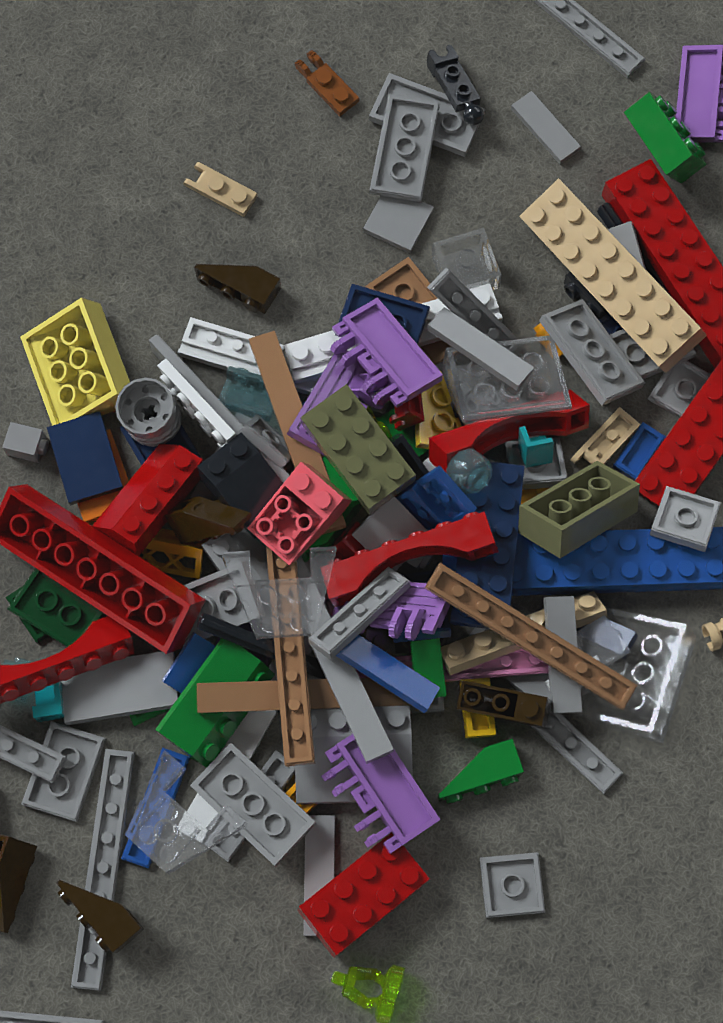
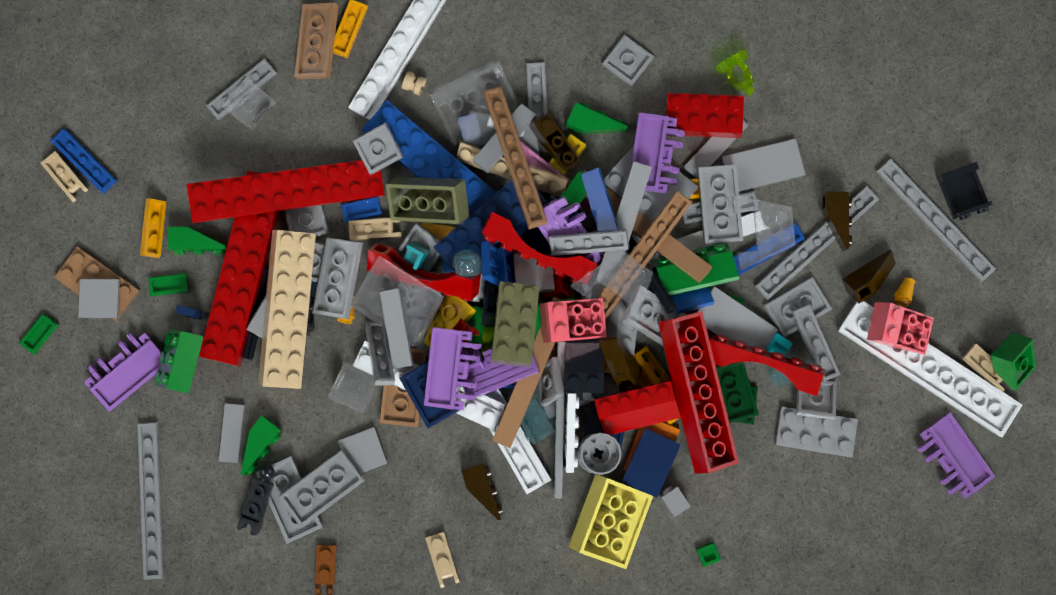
camera: 140 degrees left, 10 degrees up
(241, 905) = (767, 164): none -> light grey tile
(511, 139) = (259, 440): none -> green slope
(704, 191) = (188, 312): none -> dark blue tile

